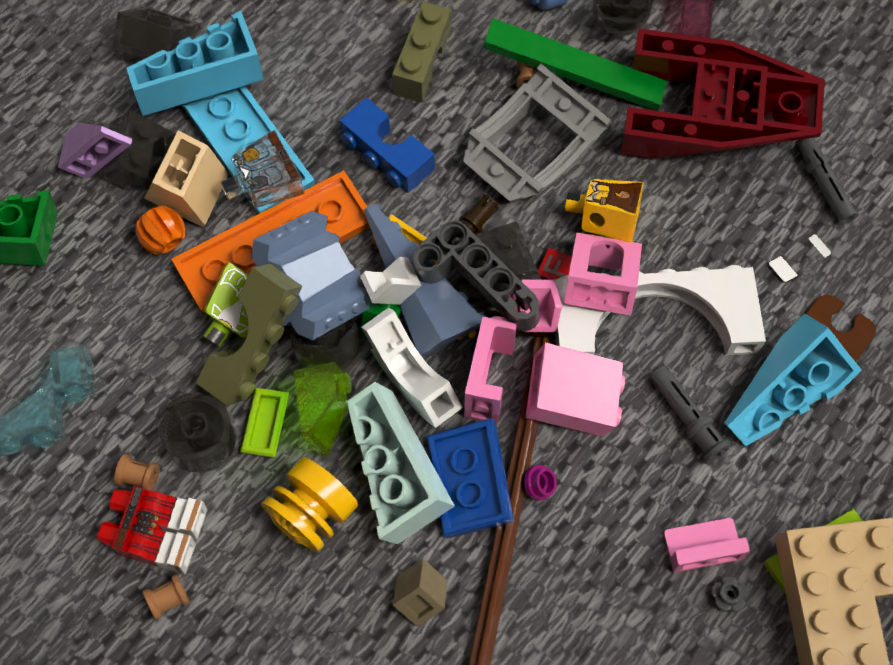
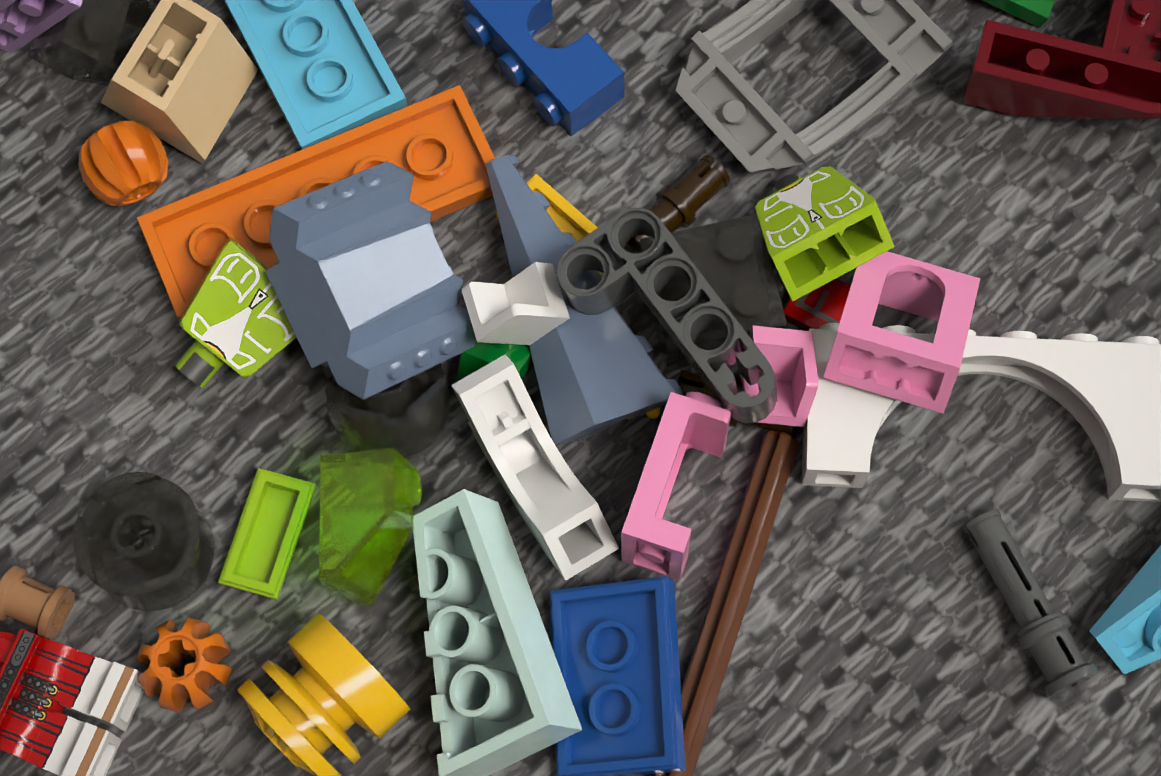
camera: 10 degrees right, 5 degrees up
(216, 494) = (170, 653): none -> orange piece
(264, 173) = (315, 78): clear torso -> none
(268, 300) = (287, 322): olive arch -> none
(540, 482) = (741, 701): magenta plate -> none
(552, 225) = (820, 229): none -> lime torso
(575, 390) = (826, 539): bright pink brick -> none
(608, 208) = (932, 204): yellow torso -> none

